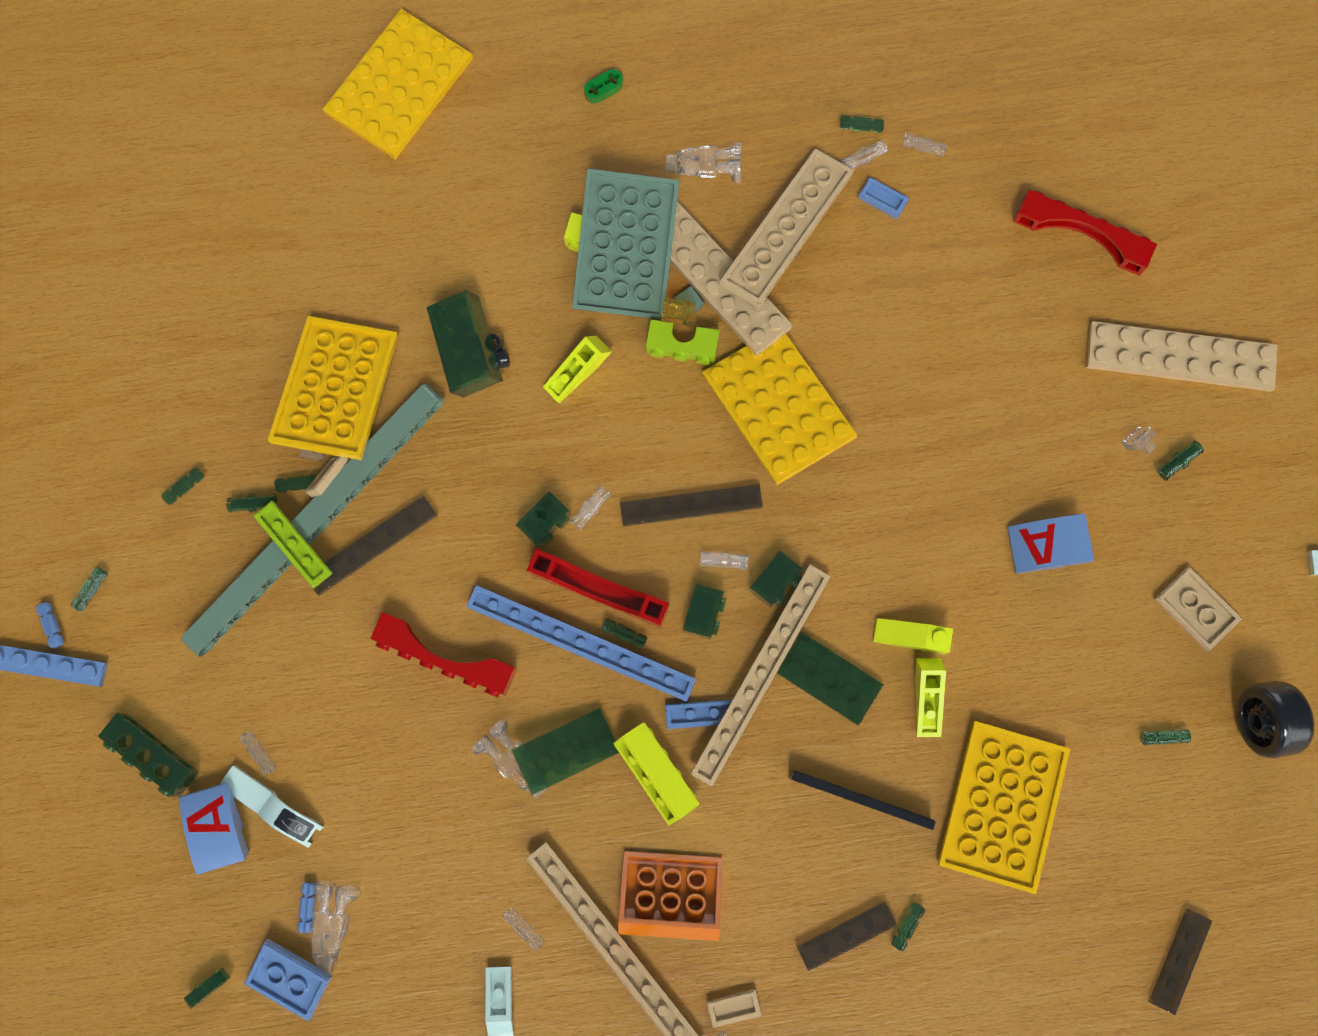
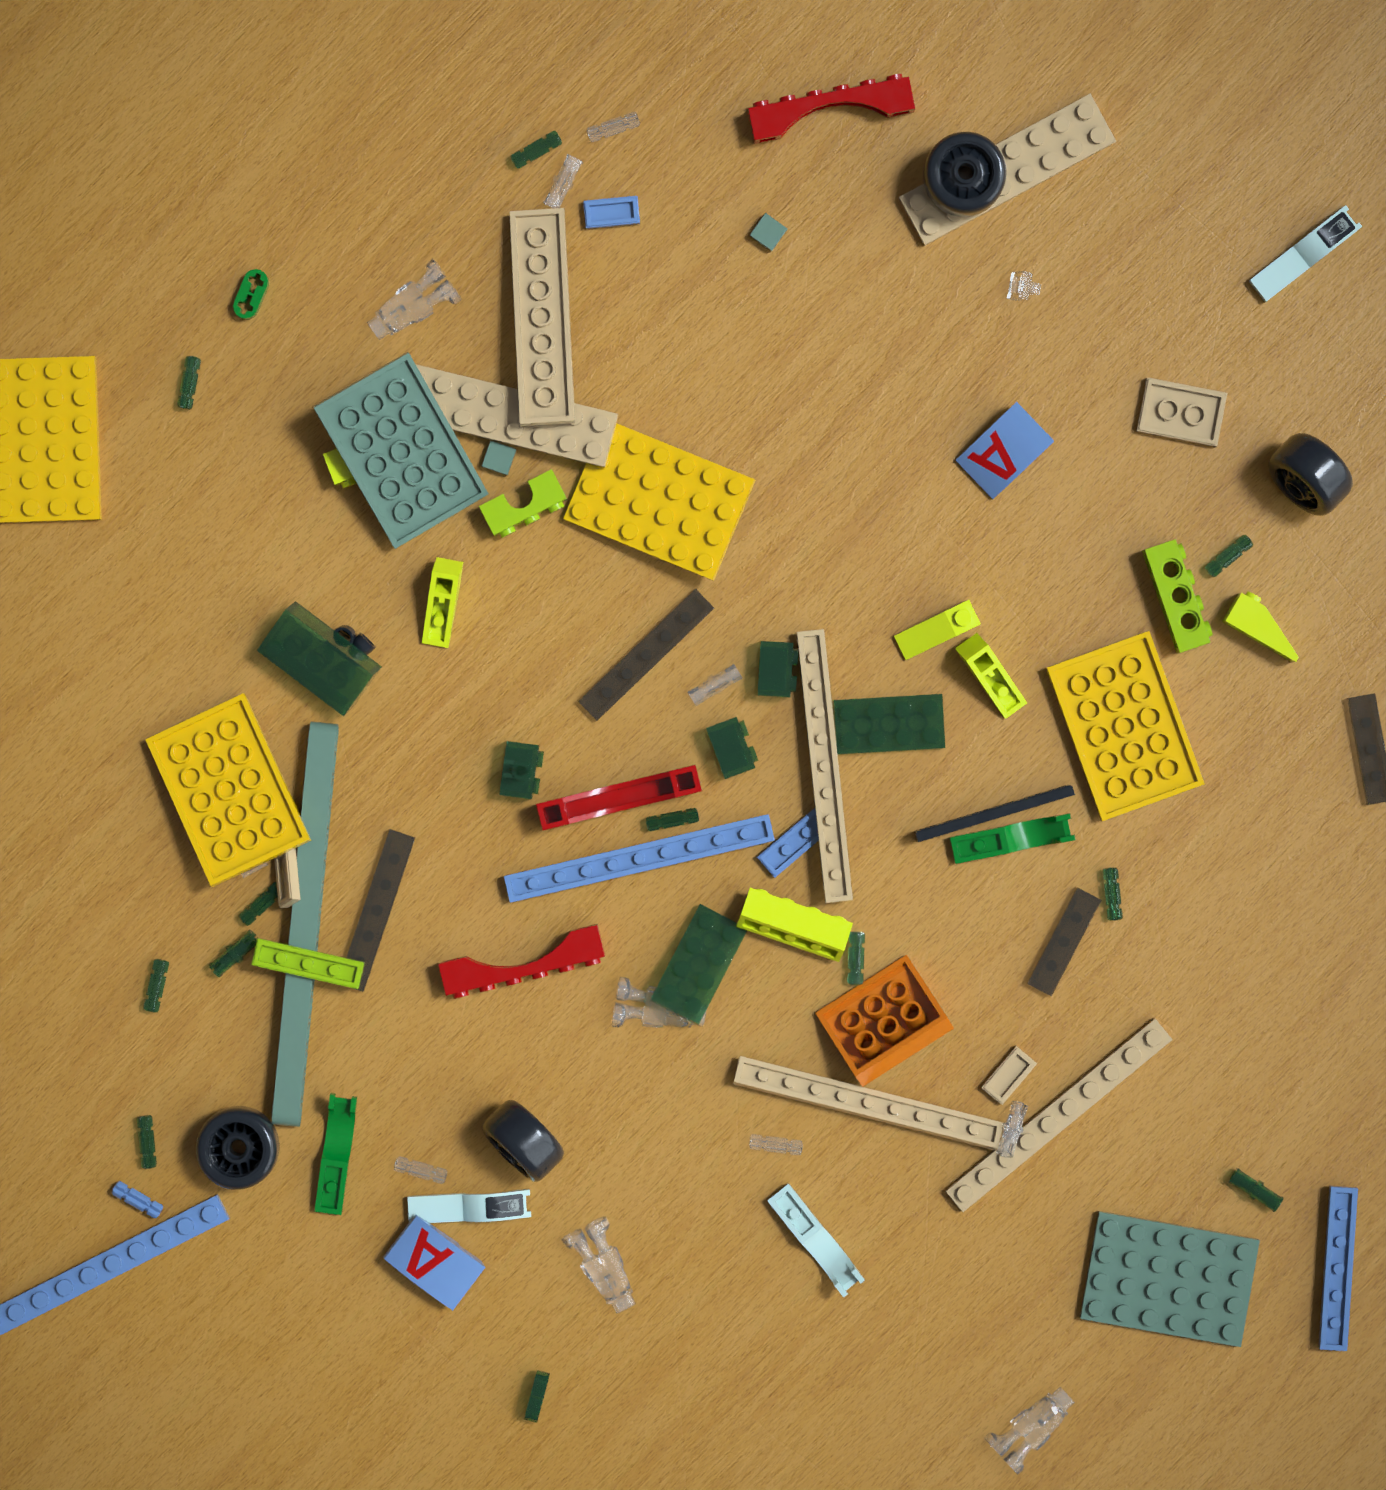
camera: 40 degrees left, 10 degrees up
(125, 634) = (219, 1159): none -> black wheel
(180, 771) = (366, 1236): clear green brick -> none
(207, 697) = (336, 1155): none -> green piece
(288, 979) = (602, 1337): medium blue tile -> none
(306, 908) = (570, 1267): medium blue axle -> none
(340, 785) = (523, 1140): none -> black wheel
(519, 112) = (189, 382): none -> clear green axle
(590, 508) = (554, 726): clear pin -> none
(678, 311) = (499, 479): clear yellow brick -> none
(683, 832) = (856, 958): none -> clear green axle
(862, 828) = (1011, 838): none -> green piece
(982, 283) = (768, 232): none -> sand green tile
(1096, 746) = (1155, 560): none -> lime brick
(1143, 343) = (956, 194): none -> black wheel
(1157, 804) = (1256, 622): none -> neon yellow slope
(1180, 460) = (1072, 278): clear green pin -> none

